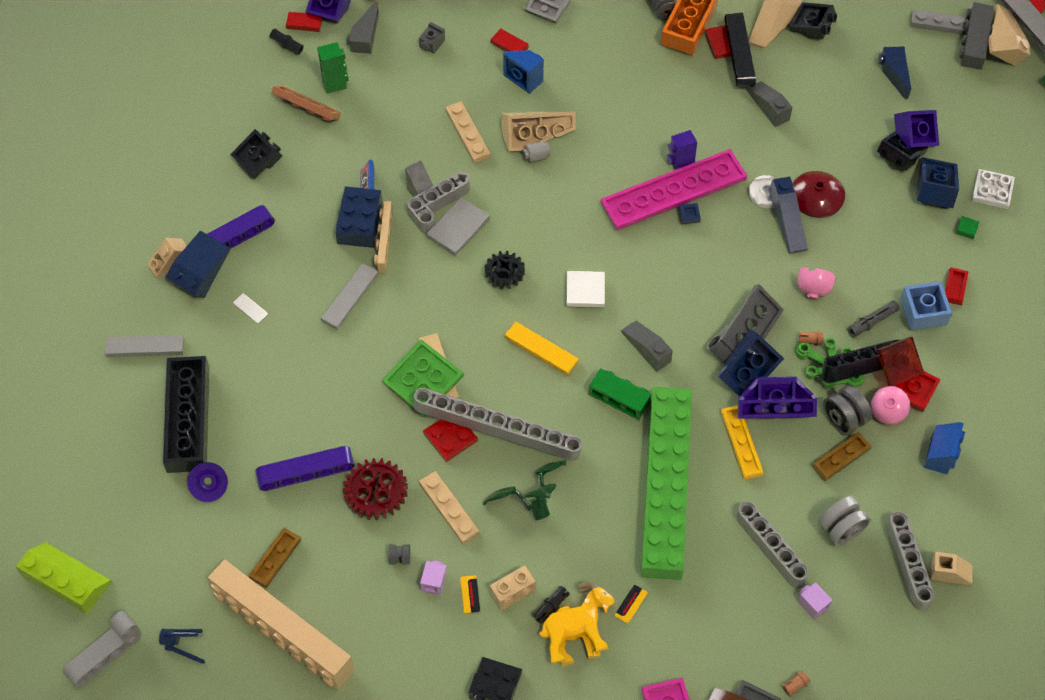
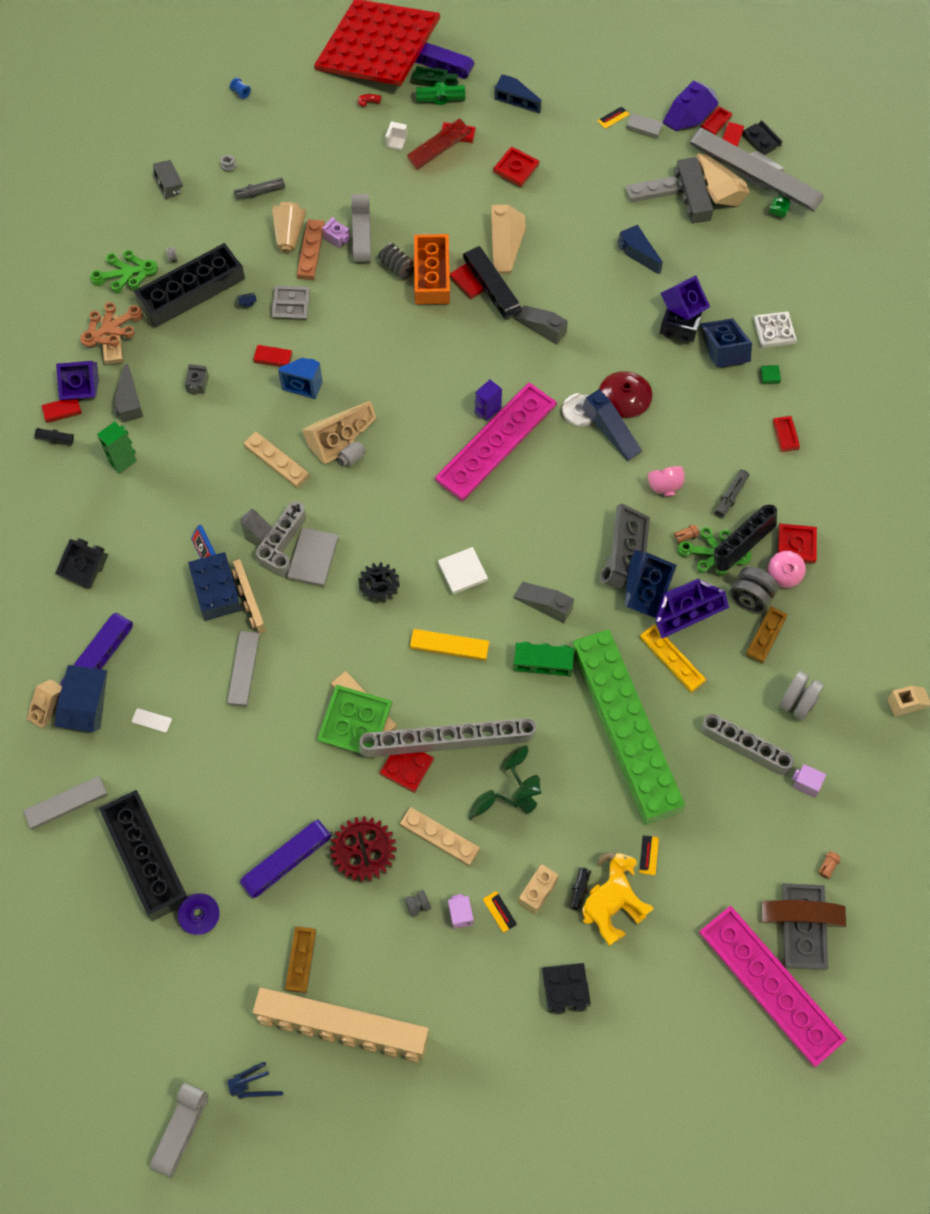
camera: 25 degrees left, 5 degrees up
(63, 576) = (102, 1072): lime slope -> none
(299, 100) = (98, 491): nougat plate -> none
(689, 213) = (522, 458): dark blue plate -> none
(814, 19) = (543, 228): black plate -> none
(900, 361) = (778, 525): clear red plate -> none
(909, 569) = (875, 715): light grey beam -> none
(926, 305) = (772, 463): medium blue brick -> none
(944, 447) = (851, 589): blue slope -> none

